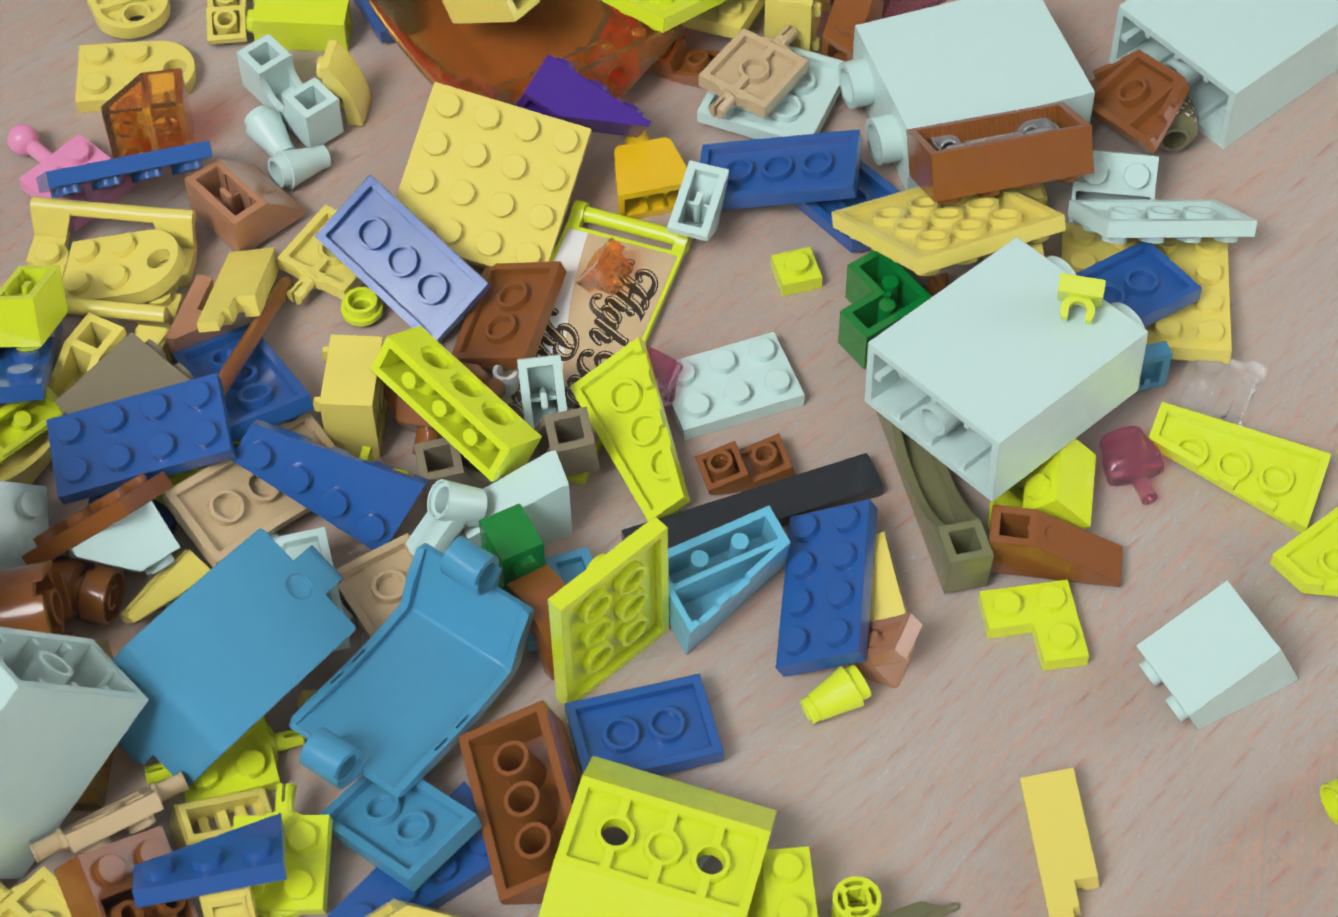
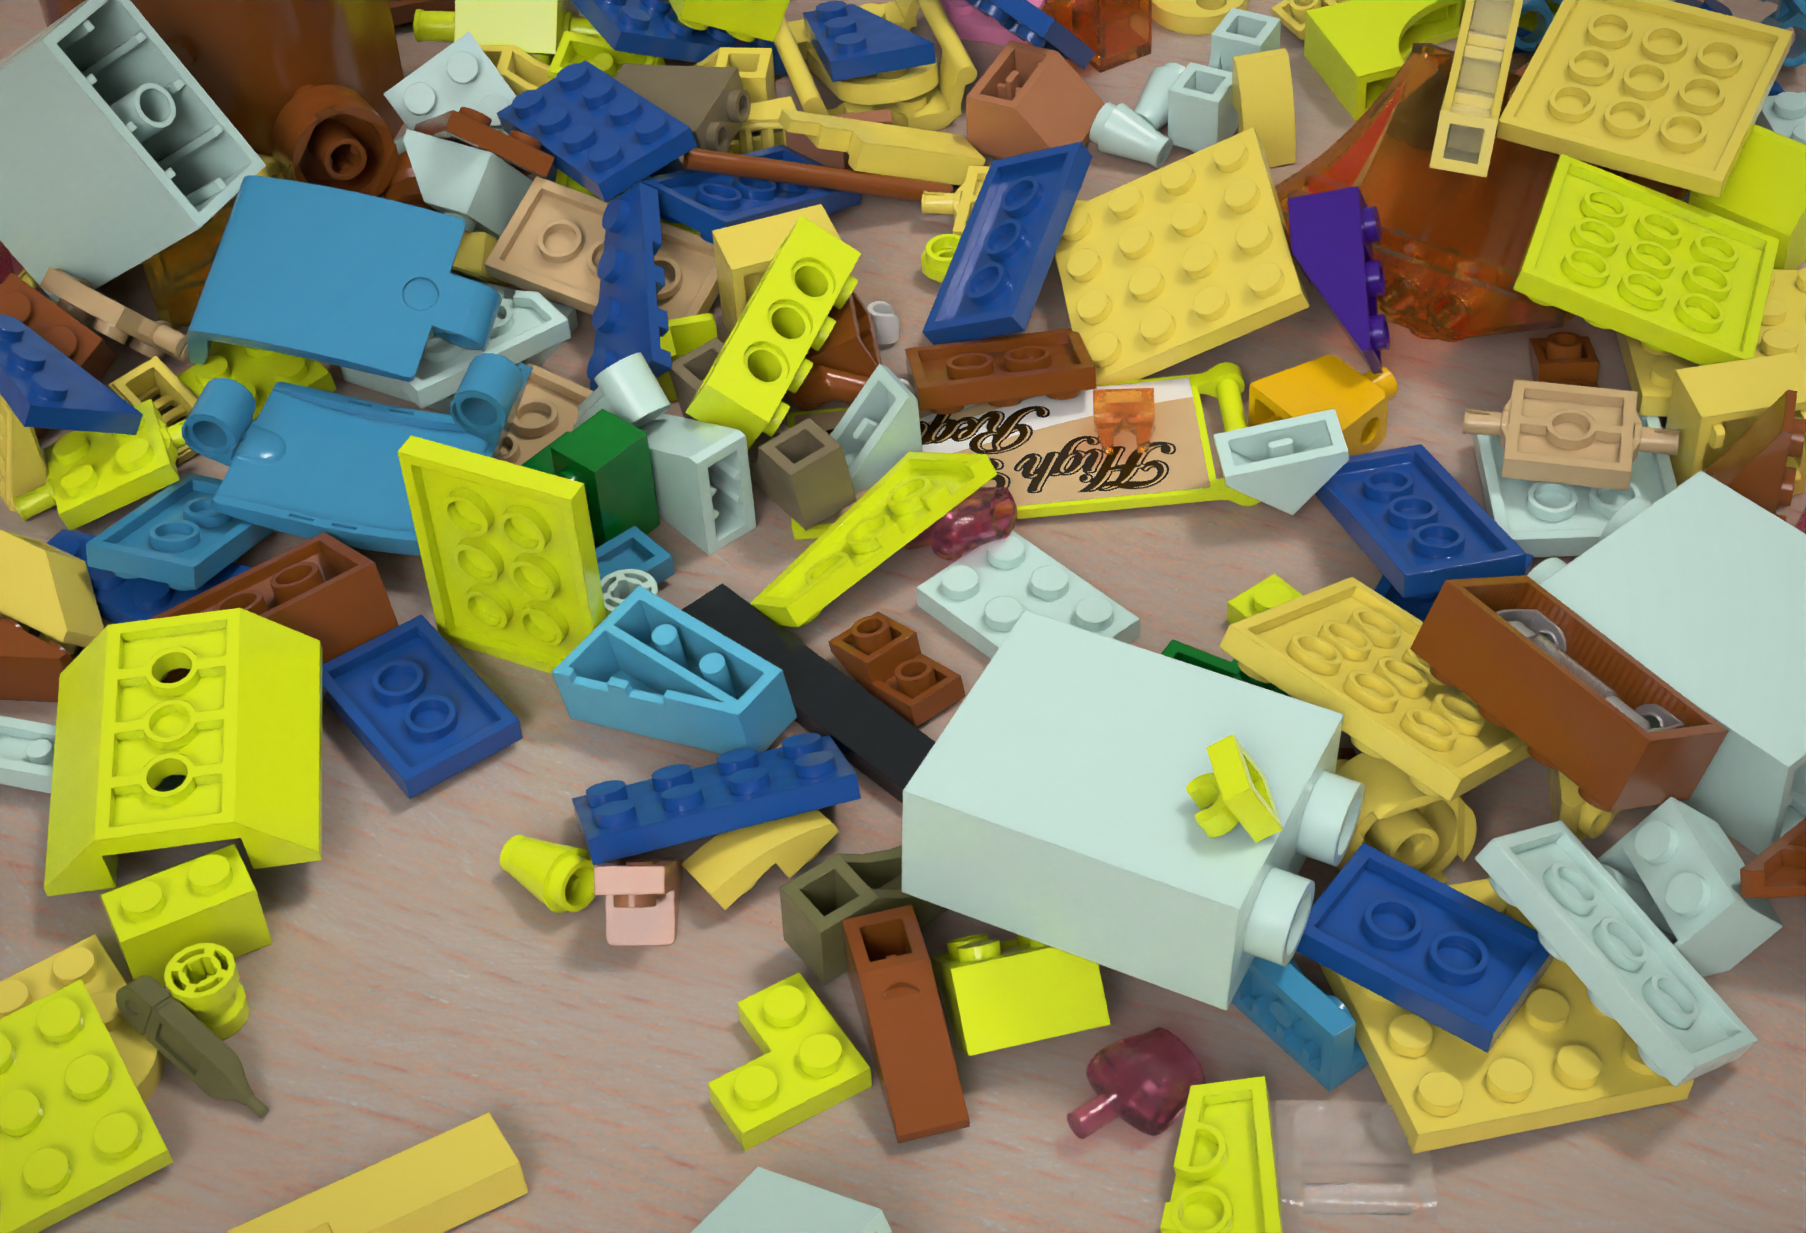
camera: 70 degrees right, 10 degrees down
(118, 262) = (861, 43): none -> blue wing

